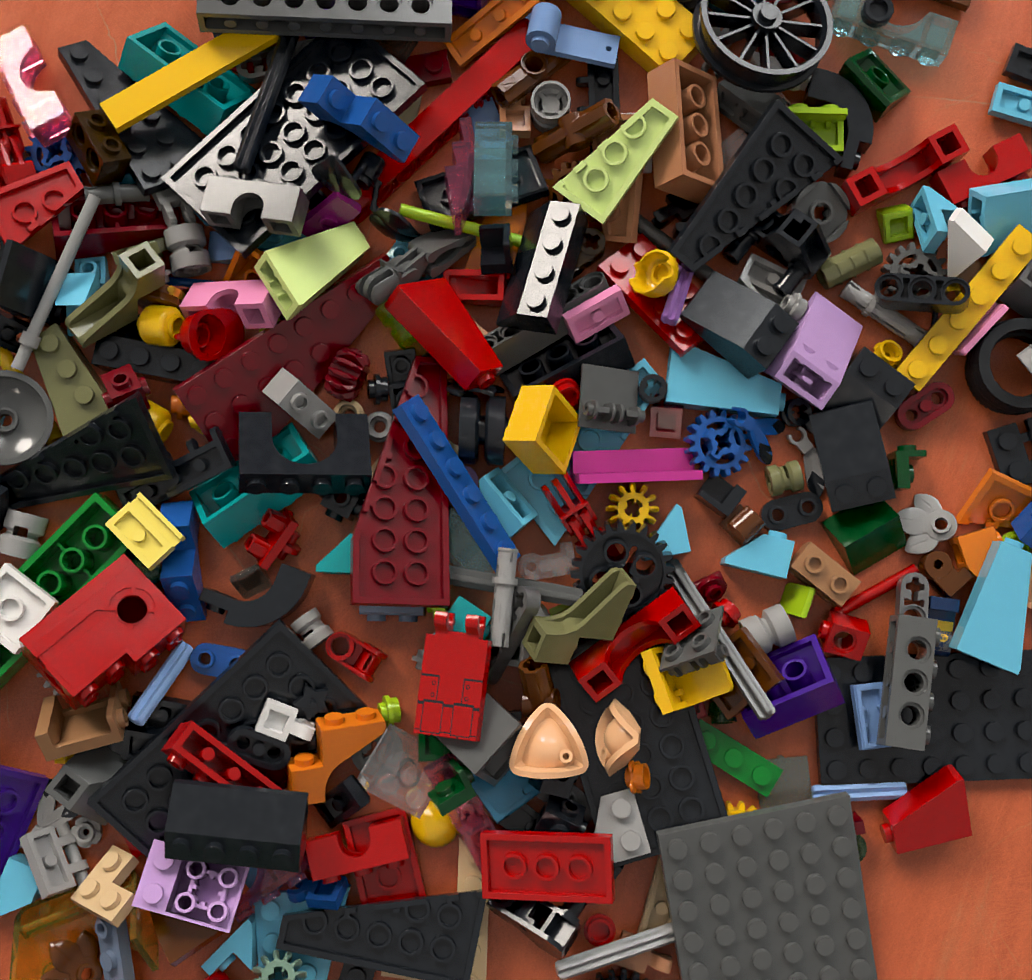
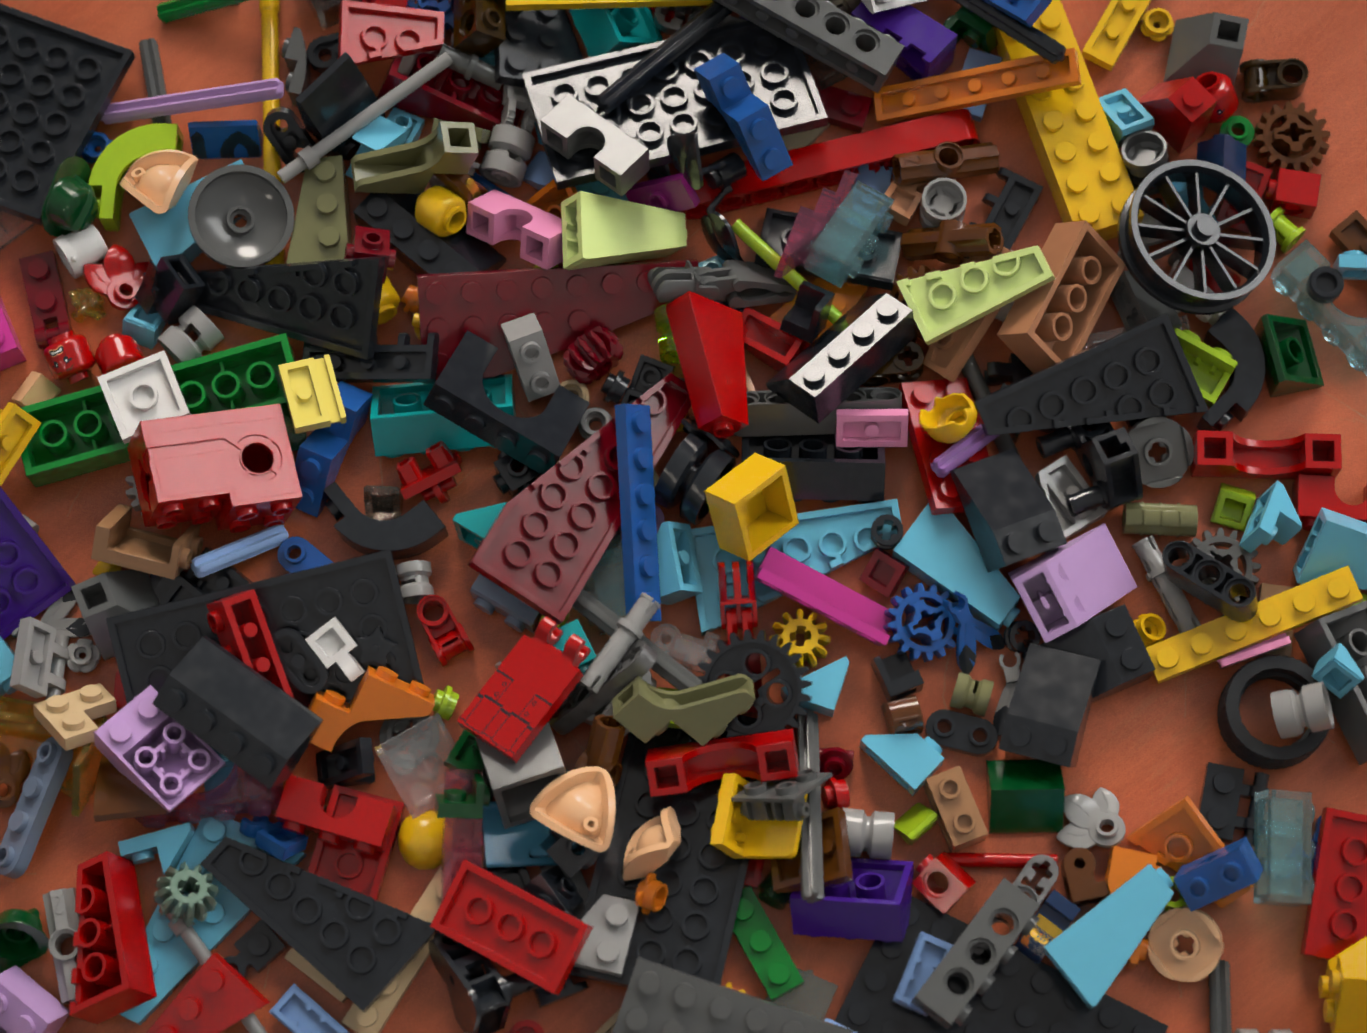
camera: 30 degrees right, 10 degrees down
(211, 333) = (484, 243): red piece -> none
(550, 37) = (980, 138): medium blue door -> none
(569, 389) = (800, 484): red plate -> none
(609, 399) = (836, 516): dark grey hinge -> none
(794, 305) = (1074, 525): light grey plate -> none
(900, 470) = (1095, 752): dark green bracket -> none
(923, 407) = (1156, 702): dark red plate -> none
(965, 242) = (1284, 554): white slope -> none

